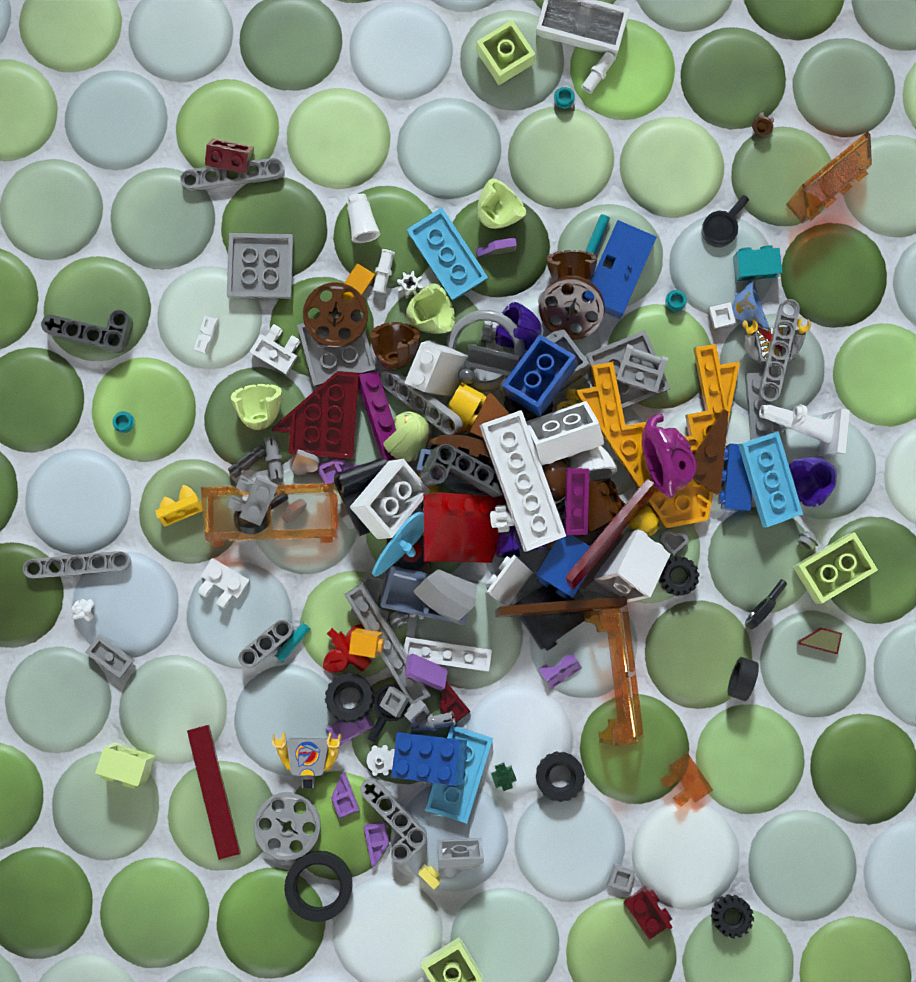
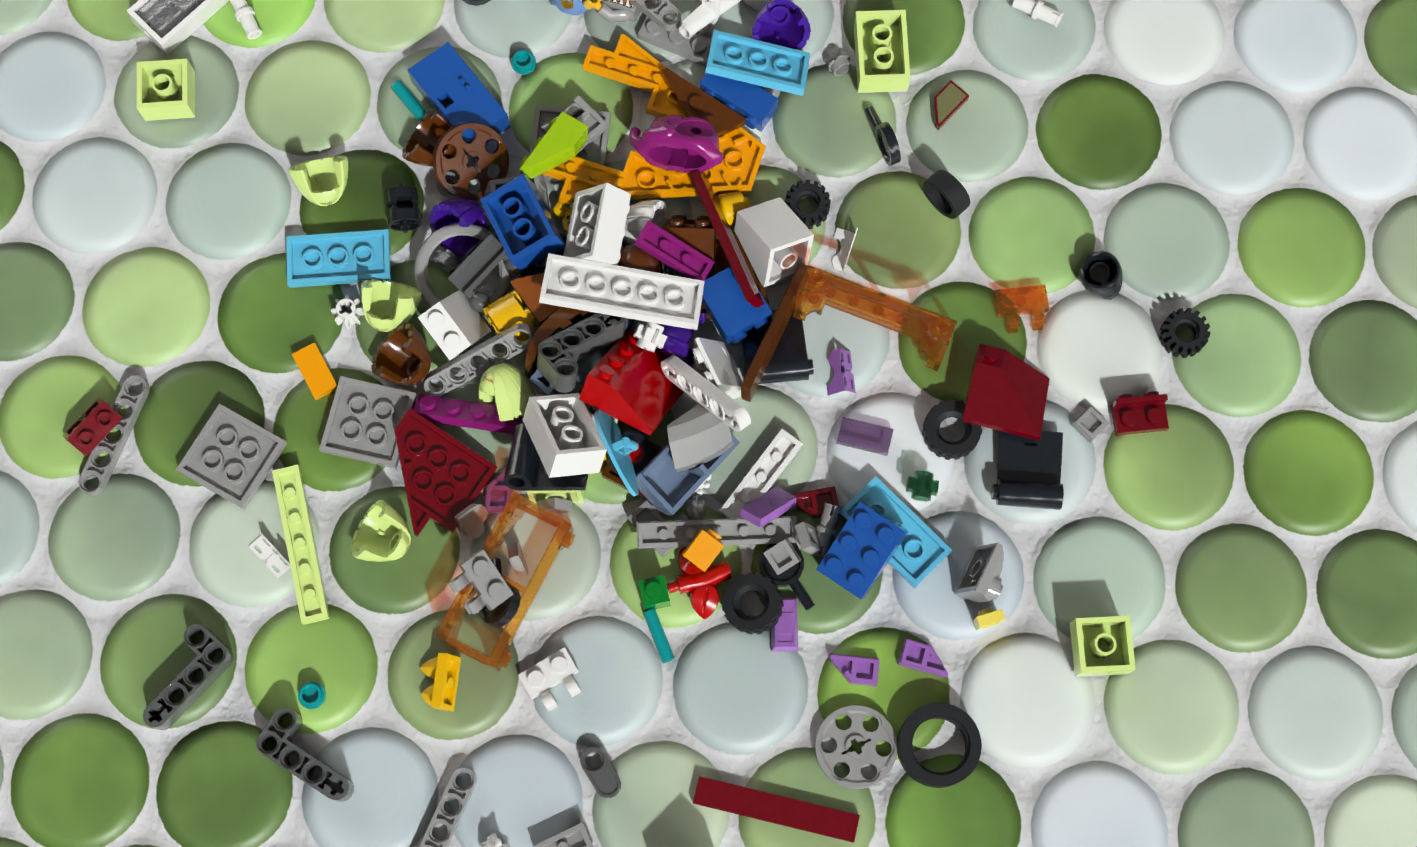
camera: 60 degrees left, 10 degrees down
(78, 445) = (307, 762): none -> dark grey beam
(172, 657) = (604, 776): none -> dark grey piece
(223, 351) = (300, 544): none -> yellowish green plate
(247, 461) = (434, 582): dark grey axle -> none
(256, 647) = (639, 651): light grey beam -> none
(273, 458) = (446, 551): light grey pin -> none
(274, 354) = (334, 492): white plate -> none
(307, 756) = (791, 681): torso -> none
(319, 622) = (654, 593): none -> green brick
(327, 308) = (334, 414): reddish brown wedge -> none
(361, 219) = (248, 324): white plant -> none
(380, 760) = (837, 607): white piece -> none
(383, 271) = (317, 332): white pin -> none
(390, 815) = (903, 627): light grey beam -> none
(478, 584) = (706, 393): none -> white beam
(497, 247) = (363, 204): medium lavender tile -> none
(508, 279) = (403, 208): none -> black wheel
(521, 713) = (864, 436): none -> clear purple tile
(557, 850) = (1029, 472): none -> black door
(564, 97) = (249, 60): teal plate -> none
(606, 804) = (1005, 393): none -> dark red slope
(618, 368) = (560, 144): none -> lime slope
(667, 620) = (846, 241): none -> white piece
(673, 541) = (769, 190): light grey tile -> none
(722, 315) = (565, 26): white plate -> none
(745, 824) = (1101, 269): none -> black hair

